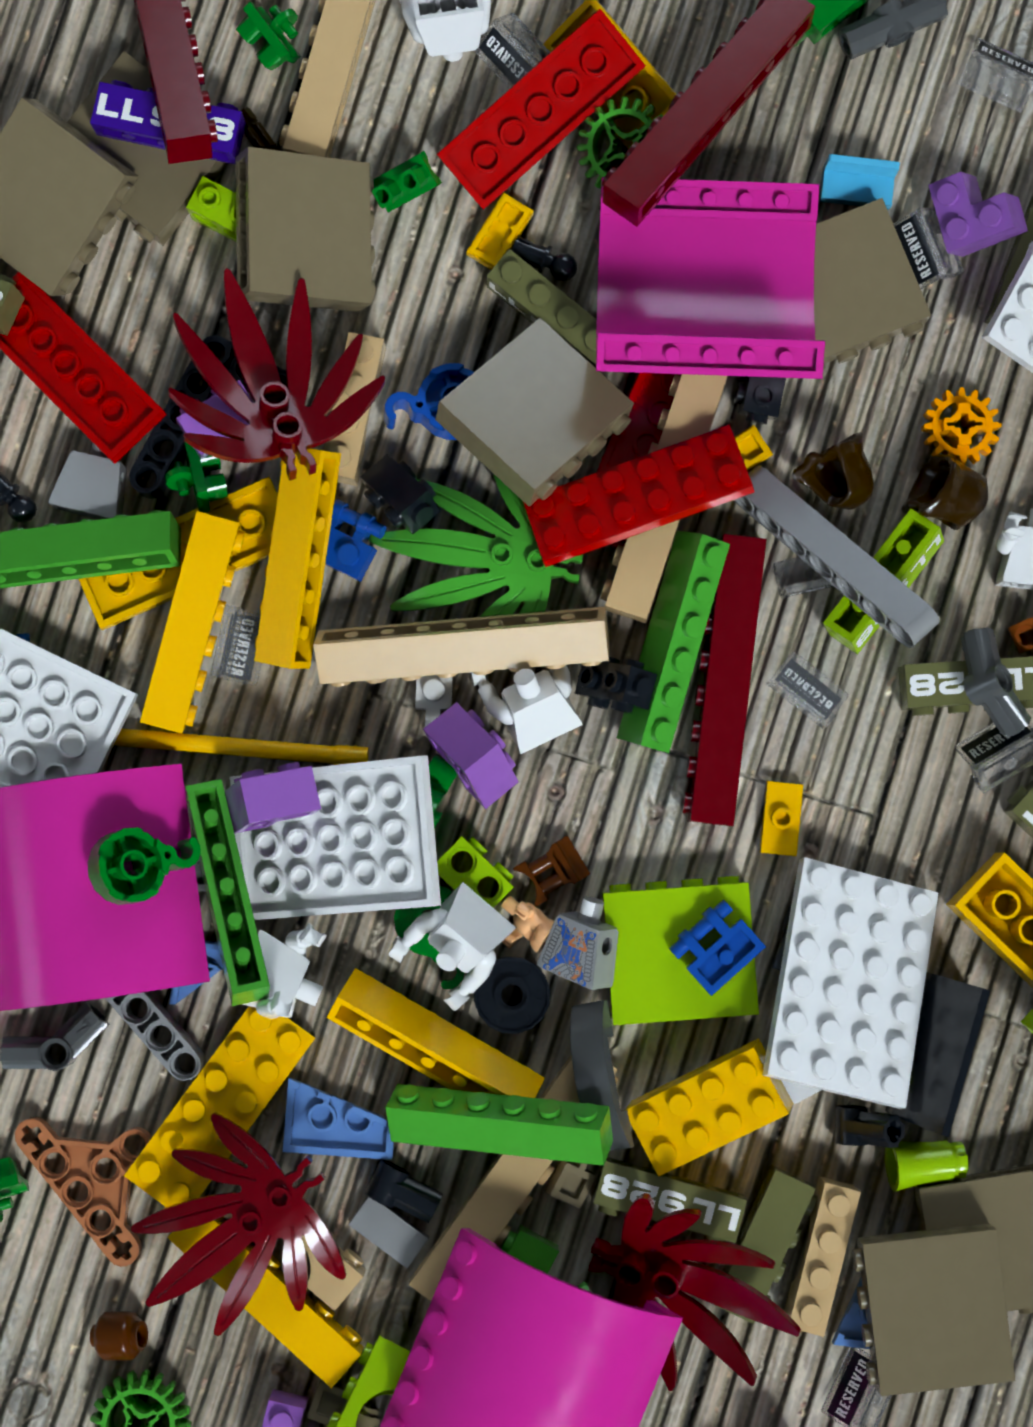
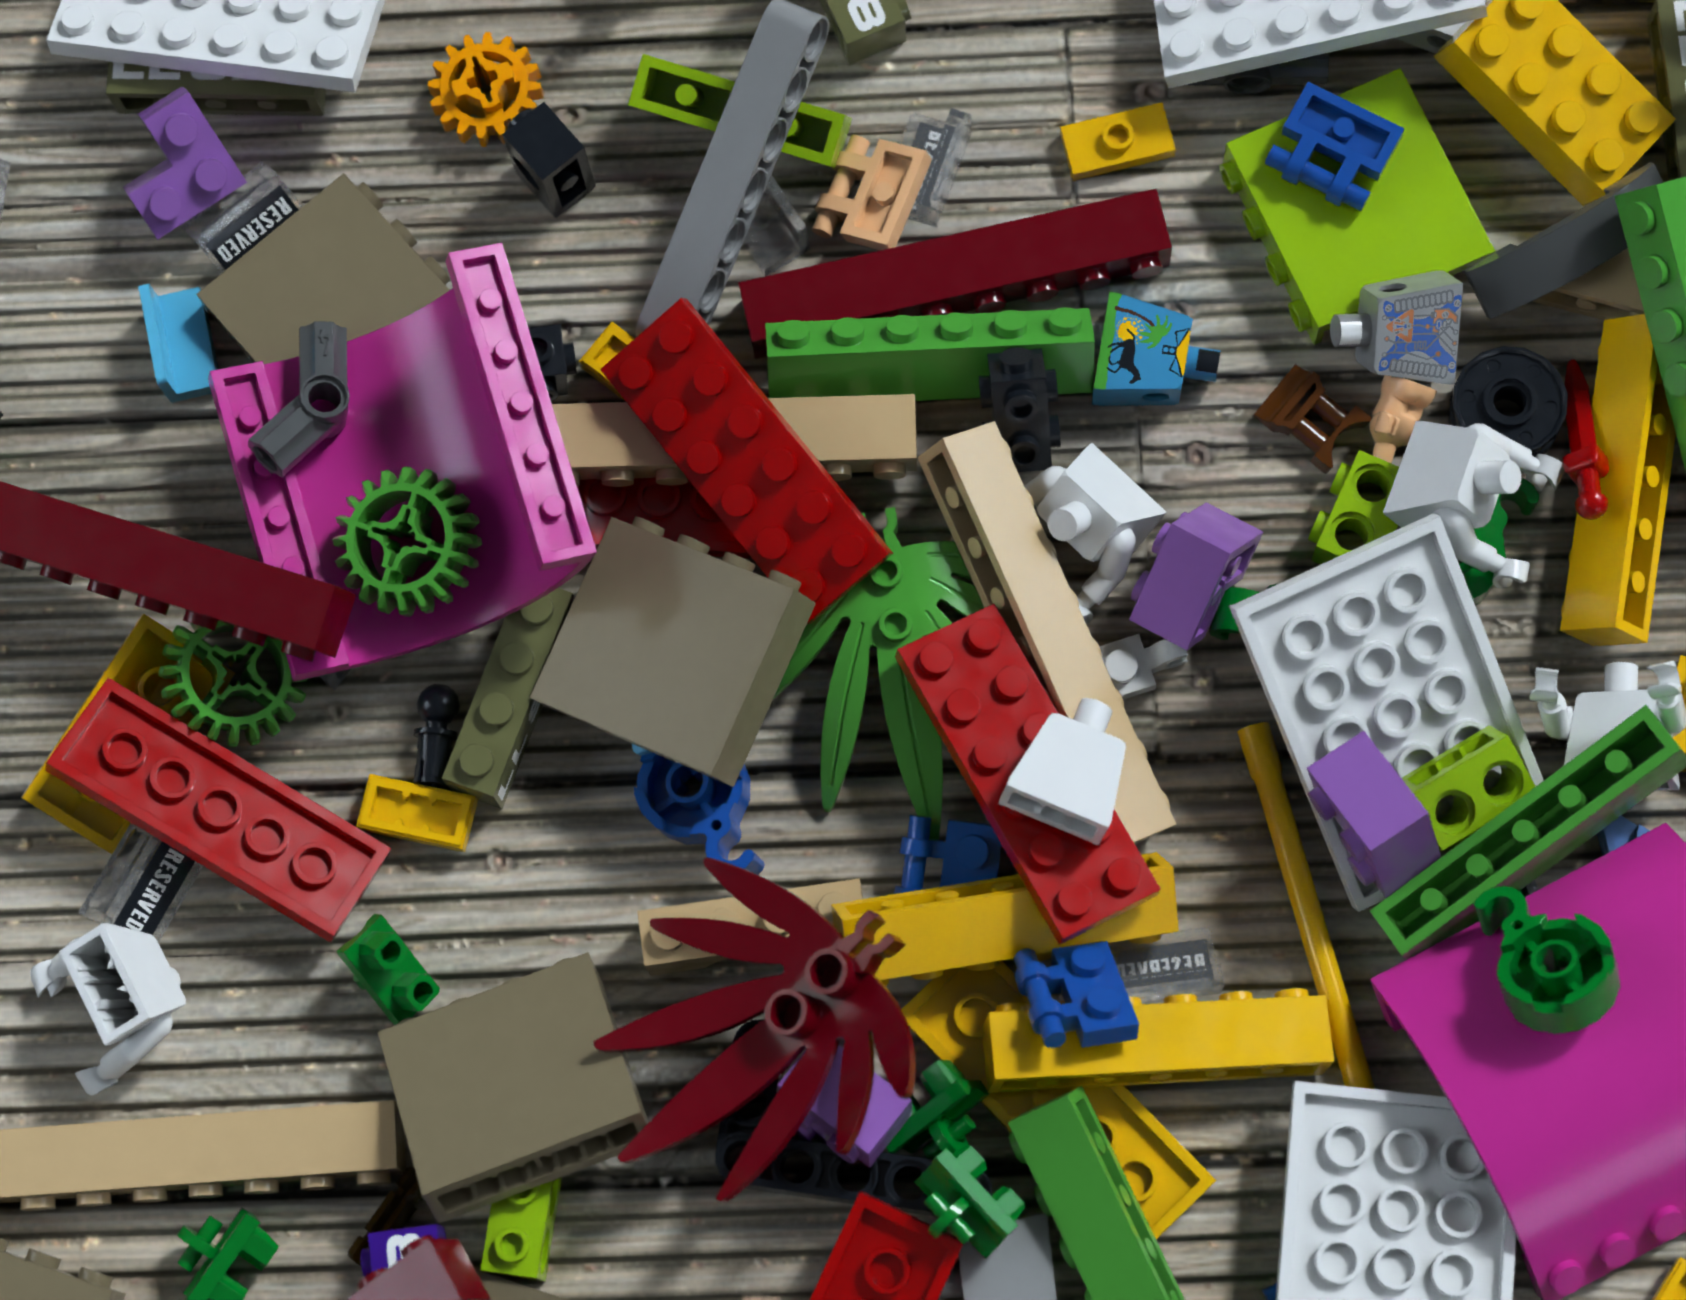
camera: 95 degrees left, 10 degrees down
(129, 466) = (964, 1204): none -> green hips
(230, 590) = (1092, 993): none -> blue plate
(279, 862) = (1462, 774): none -> lime brick
(360, 619) = (1070, 773): none -> white torso
(377, 598) = (988, 715): none -> red plate
(400, 494) = (861, 798): black brick -> none
(451, 1025) = (1586, 461): none -> red sword
(628, 781) = (1147, 355): none -> dark azure torso
(645, 252) = (403, 561): none -> bright green gear
(793, 254) = (298, 425): none -> dark grey piece
(794, 653) = (884, 195): none -> light nougat plate
(838, 474) = (608, 222): dark brown piece -> none
(894, 446) = (548, 158): none -> black brick
(948, 492) = (586, 74): dark brown piece -> none

